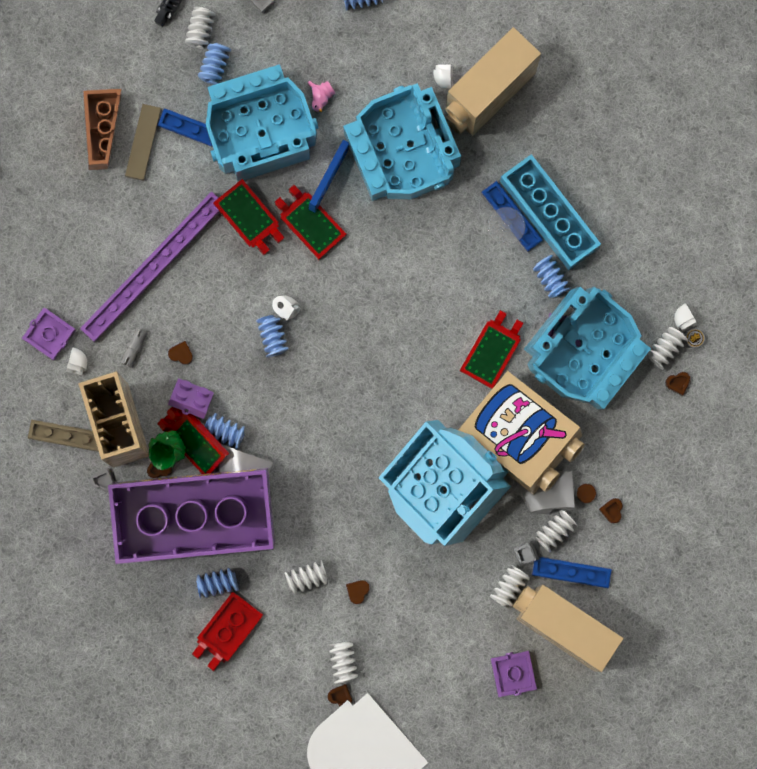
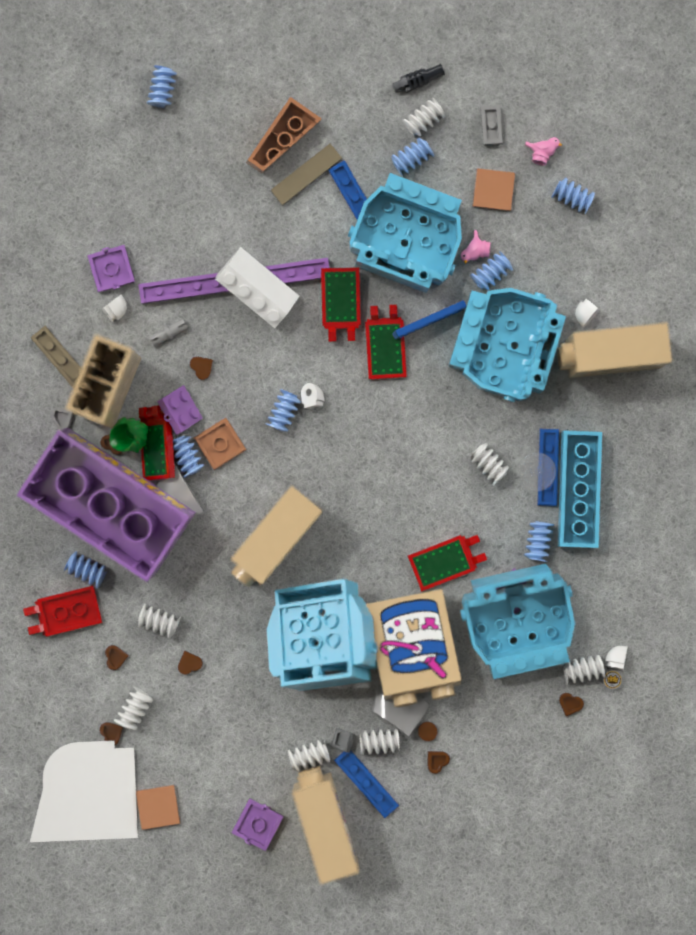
camera: 35 degrees right, 5 degrees up
(175, 256) = (257, 287): none -> white slope
(243, 401) = (220, 443): none -> nougat tile
(295, 633) = (115, 656): none -> reddish brown tile
(297, 40) = (493, 189): none -> nougat tile
(345, 102) = (492, 271): none -> light blue piece
(345, 434) = (274, 537): none -> tan brick
(424, 724) = (157, 807): none -> nougat tile
(464, 248) = (489, 463): none -> white piece

